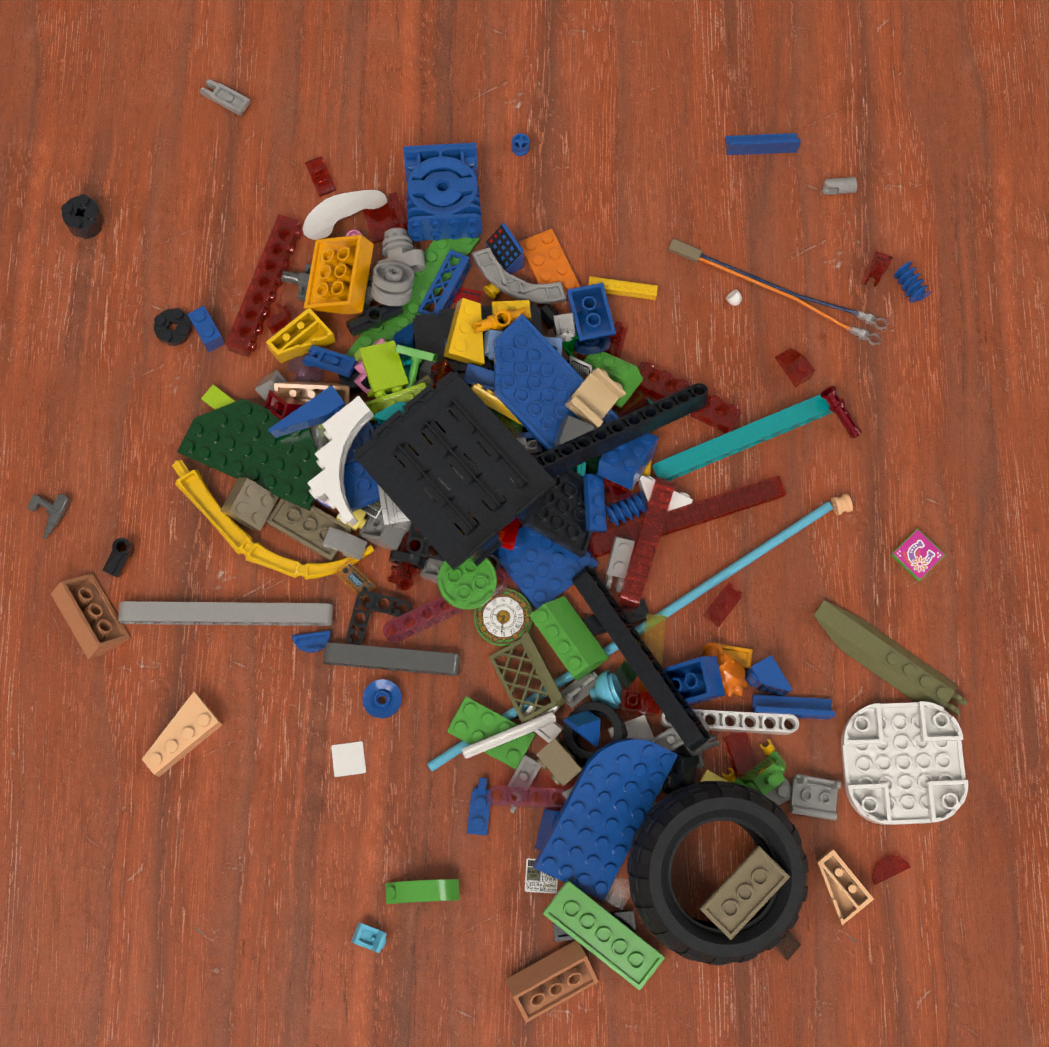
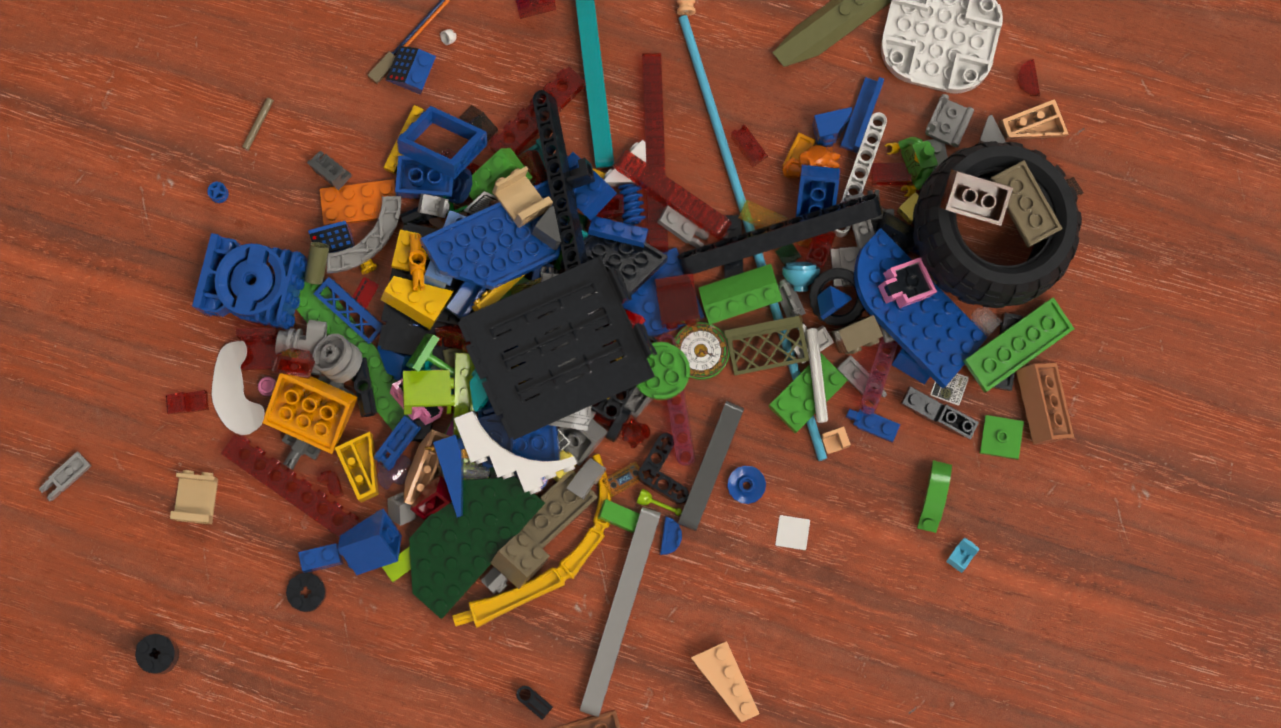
camera: 65 degrees left, 5 degrees up
(222, 489) = (495, 581): none -> light grey bracket
(229, 366) = (371, 543): none -> blue slope
(234, 209) = (195, 498): none -> tan panel
(317, 584) = (618, 516): none -> bright green tile
(342, 606) = (646, 498): none -> lime hinge
(375, 245) = (294, 363): none -> clear red slope
(451, 774) = (835, 440): none -> light nougat panel
(477, 241) = (316, 263): none -> olive pin
(504, 945) = (1001, 437): none -> bright green plate
(508, 872) = (939, 413): none -> slope
(543, 579) = (677, 301): none -> clear red panel
(571, 230) = (329, 170): none -> dark grey hinge
(596, 160) = (257, 124): none -> dark tan bar
(615, 335) = (436, 161): none -> blue window
(626, 796) = (907, 283): none -> piece
(635, 448) = (582, 175): none -> black panel
(659, 349) = (479, 119): none -> clear smoke slope
(691, 274) = (411, 68): none -> blue slope
(730, 834) = (976, 197): none -> brick
(814, 844) = (991, 132): none -> light grey slope

